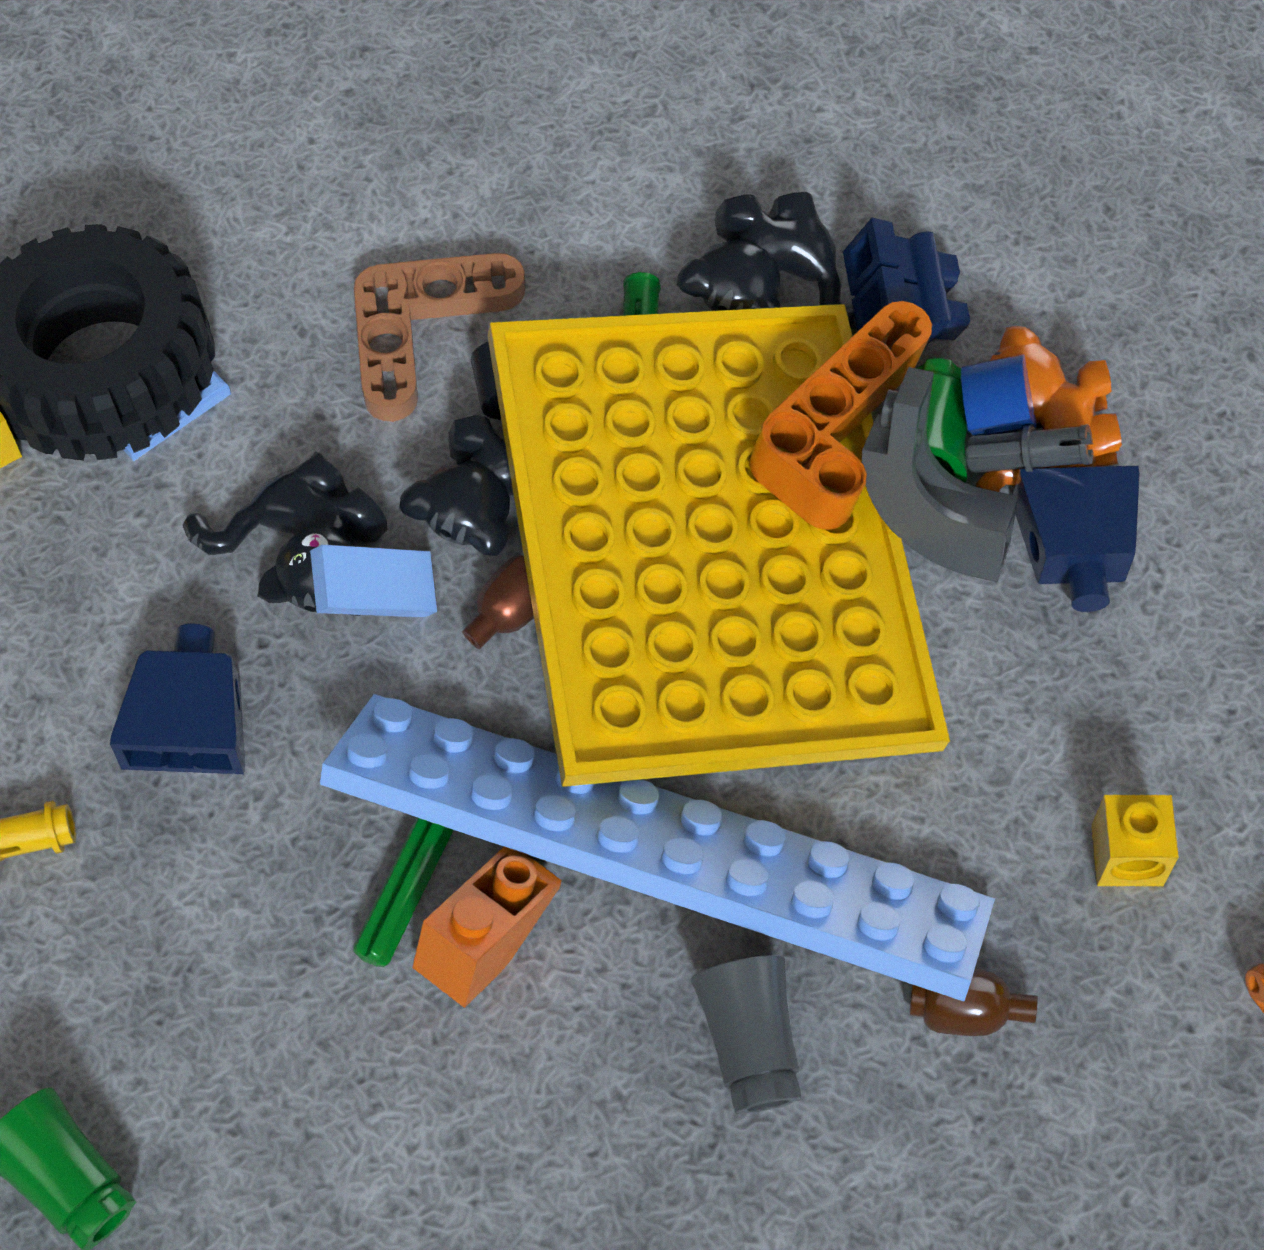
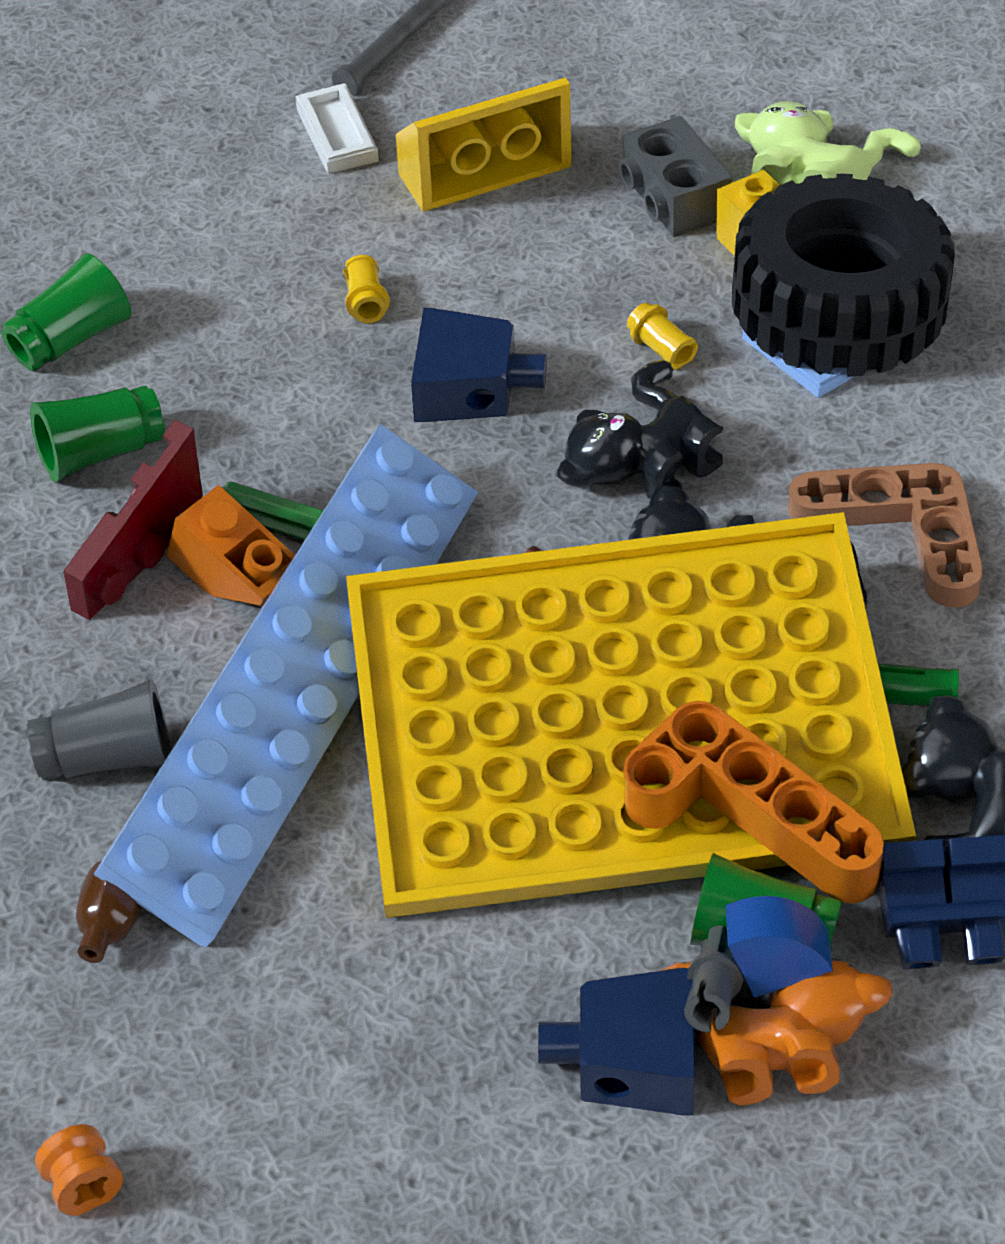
camera: 95 degrees right, 15 degrees down
(138, 526) = (651, 326): none -> yellow pin
(269, 1108) = (94, 428): none -> green plant
(373, 581) = (580, 471): light blue tile -> none
(447, 1027) = (142, 529): none -> dark red wing
(921, 501) = (662, 874): dark grey arch -> none
(1134, 840) = (251, 1045): yellow brick -> none

